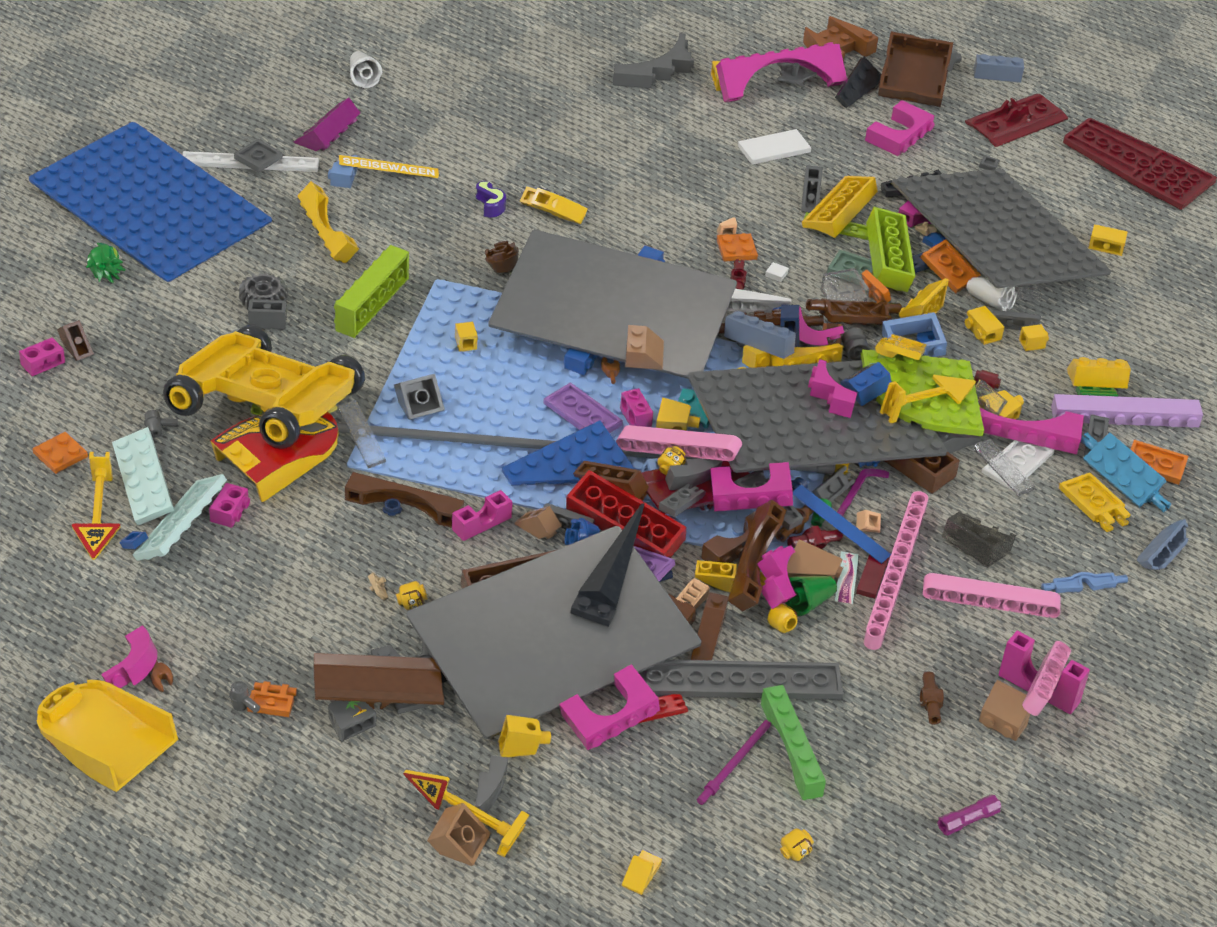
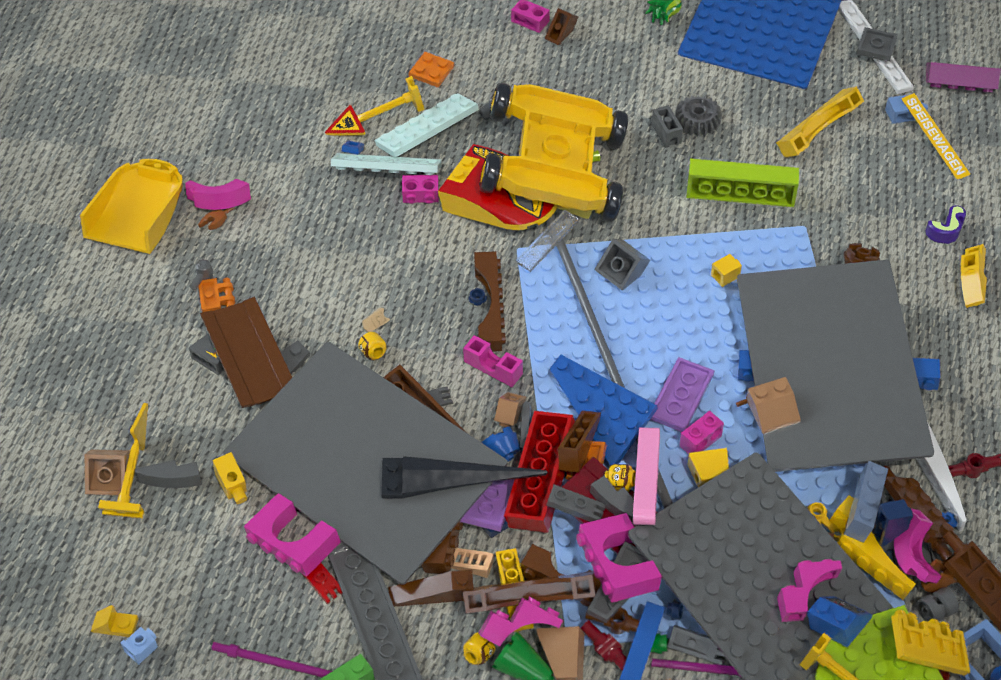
camera: 75 degrees right, 10 degrees up
(678, 854) = (140, 650): none -> light blue brick

